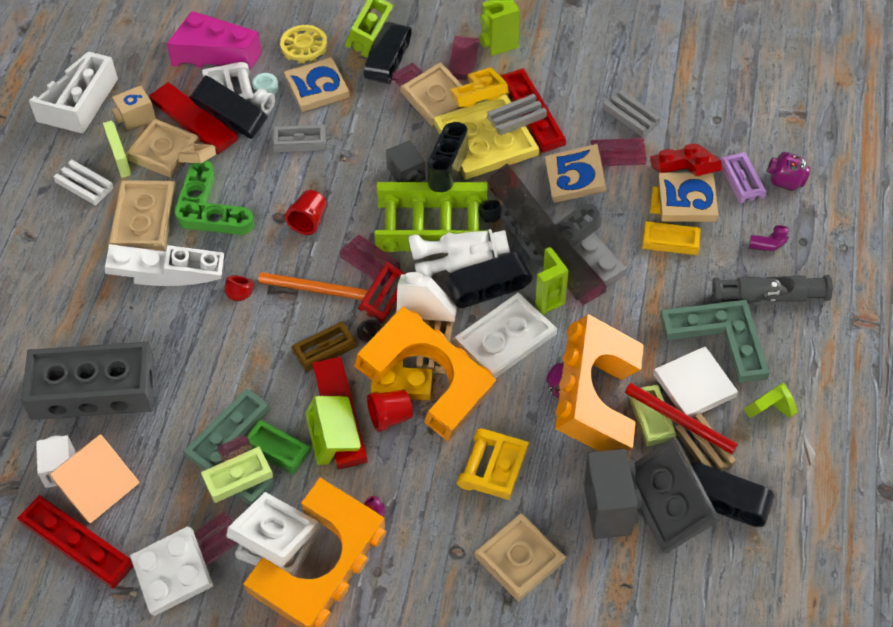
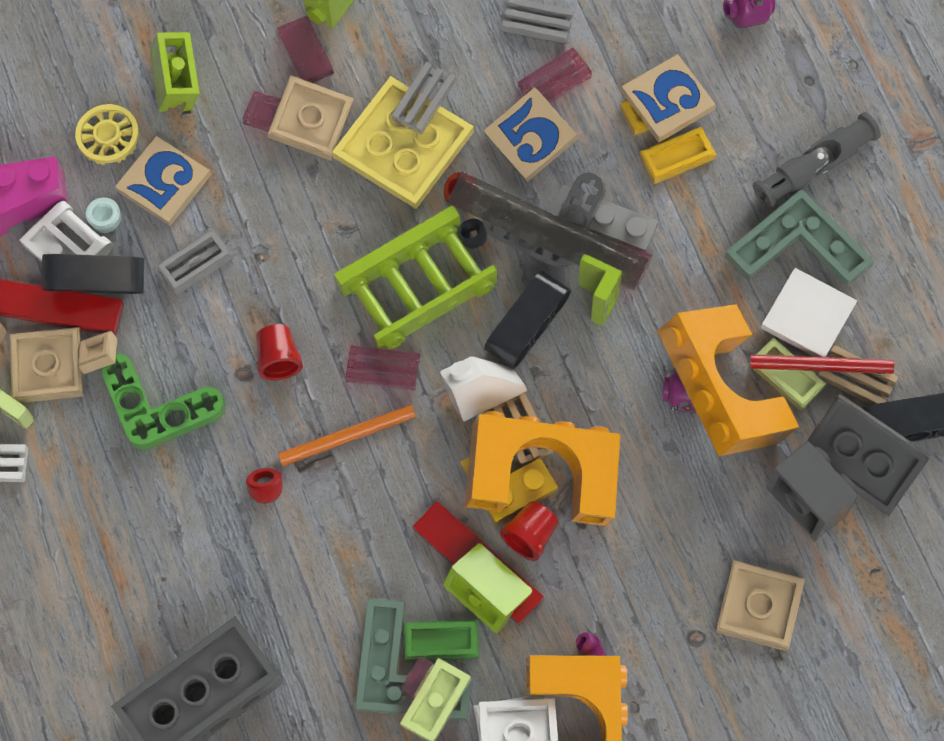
camera: 30 degrees left, 15 degrees up
(143, 214) = (90, 463): tan tile -> none
(170, 268) = (171, 511): white slope -> none
(263, 100) = (121, 241): white bush -> none
(326, 349) = (394, 525): pearl gold tile -> none
(371, 326) = (447, 448): black hinge -> none
(372, 310) = (418, 426): red tile -> none
(387, 52) = (218, 94): black beam -> none
(405, 163) = (343, 230): dark grey brick -> none
(447, 157) = (396, 212): black beam -> none
(462, 250) = (482, 303): white piece -> none
(482, 86) = (363, 82): yellow plate -> none
(502, 467) = (683, 521): yellow plate -> none
(505, 335) = (584, 373): white tile -> none
(544, 131) = (406, 62): red tile -> none
(692, 157) = (637, 46): red plate -> none
(740, 181) = (697, 46): lavender tile -> none
(772, 242) = (781, 101): magenta arm -> none
(779, 397) = (890, 292): lime tile -> none

